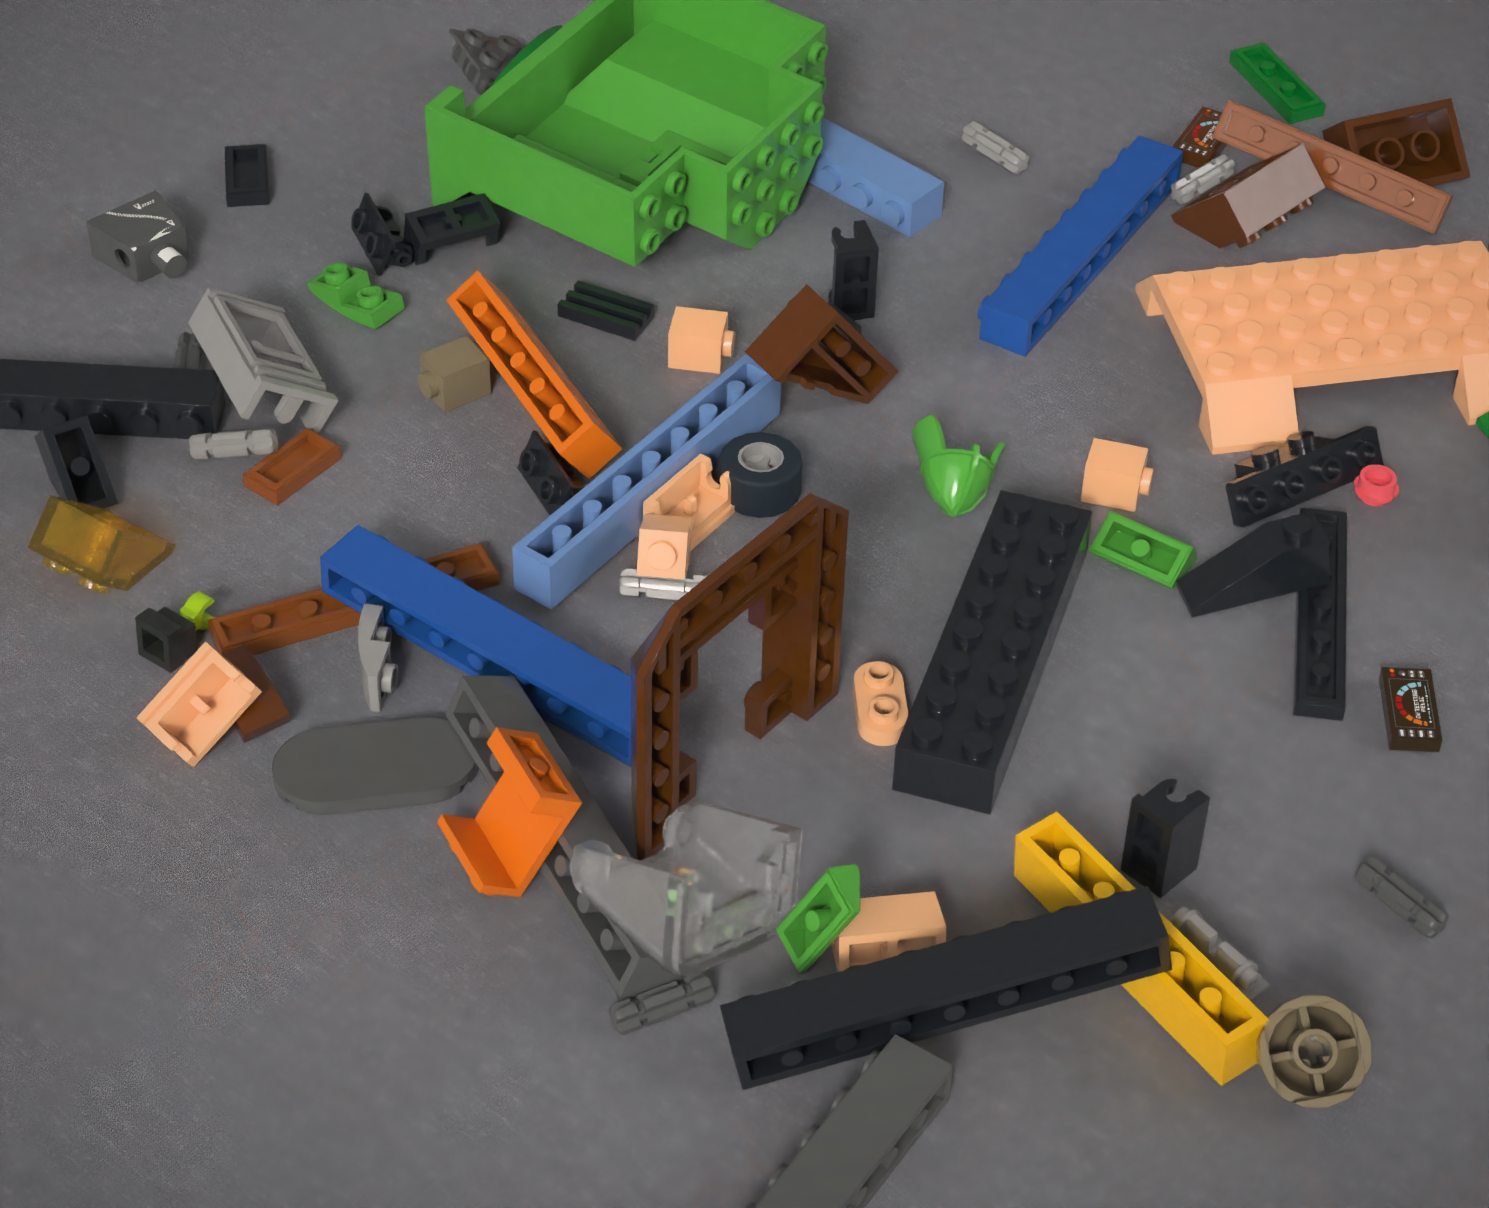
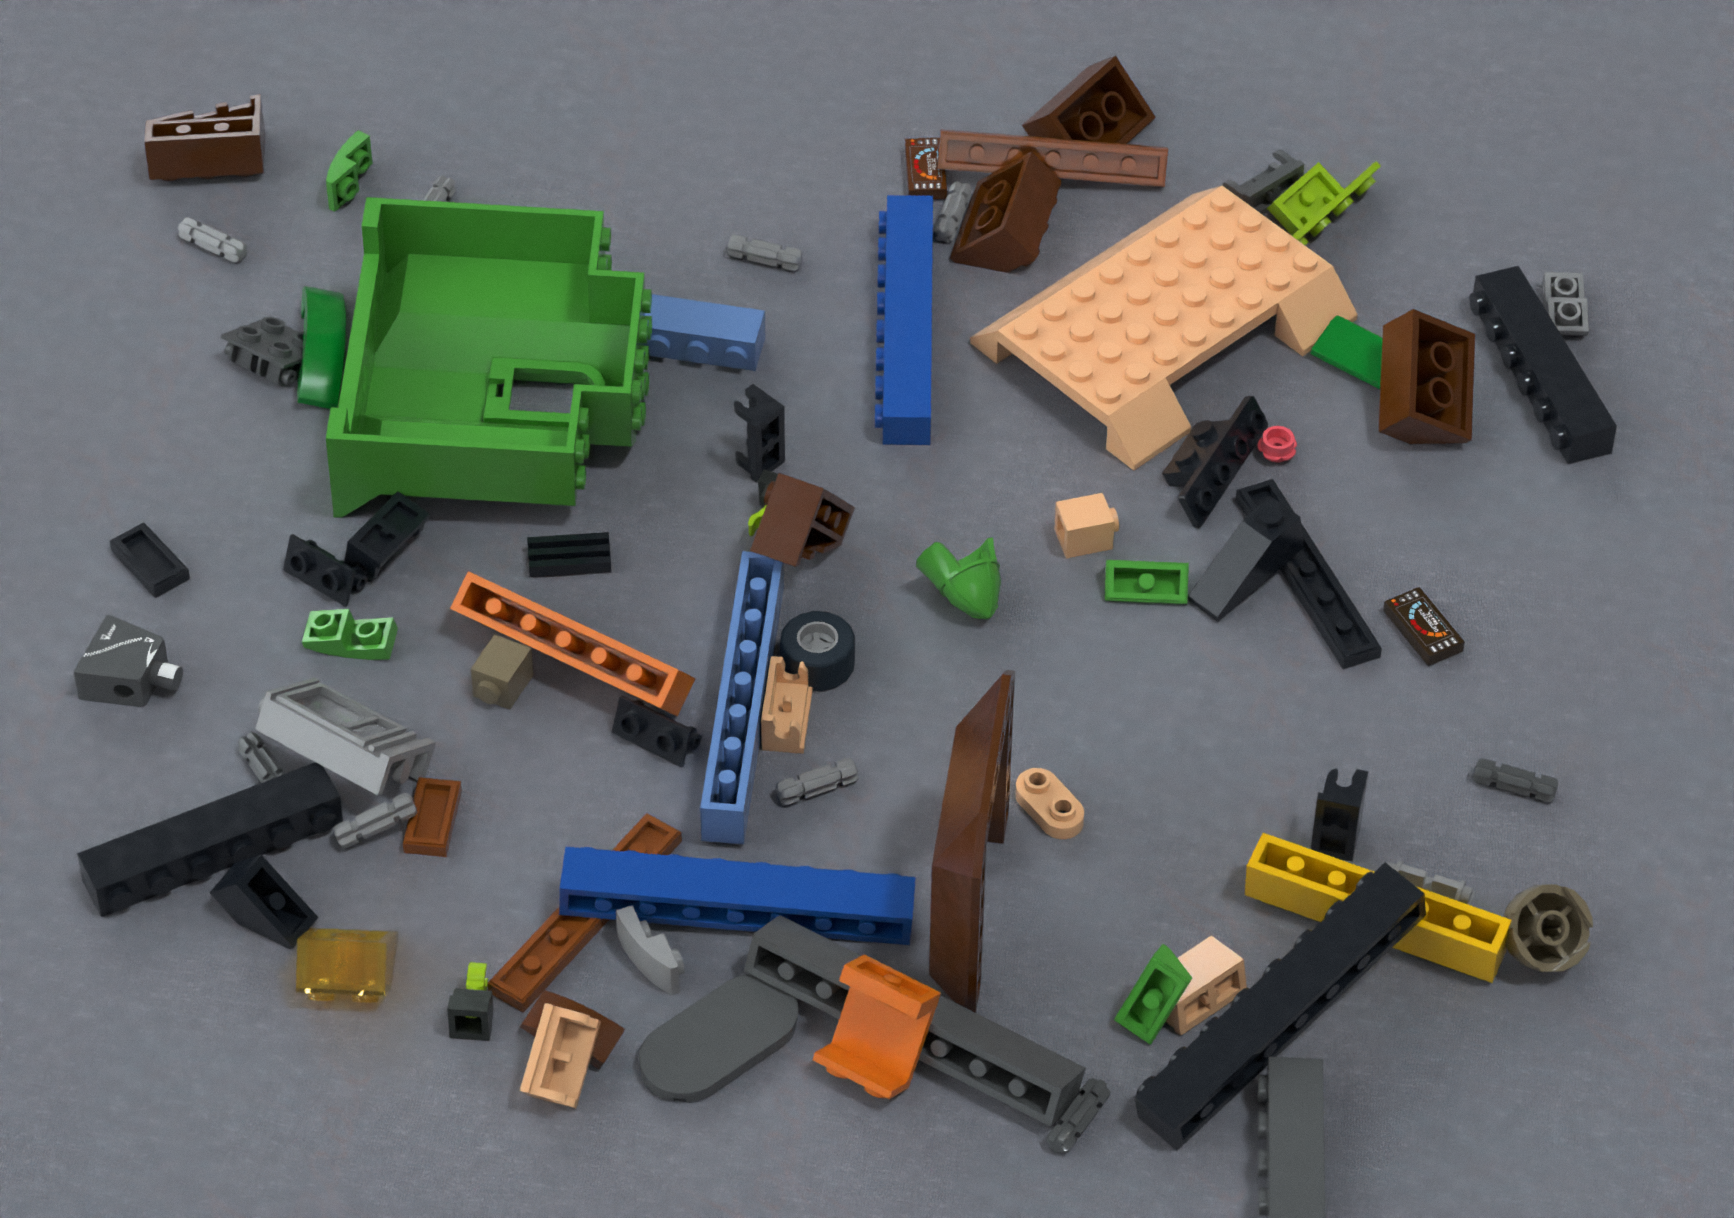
camera: 30 degrees left, 5 degrees up
(664, 546) = (804, 750): light nougat brick -> none
(699, 340) = (673, 549): light nougat brick -> none
(704, 897) = (1052, 1011): clear windscreen -> none
(992, 653) = (1107, 719): black brick -> none
(1277, 83) = (943, 86): green tile -> none

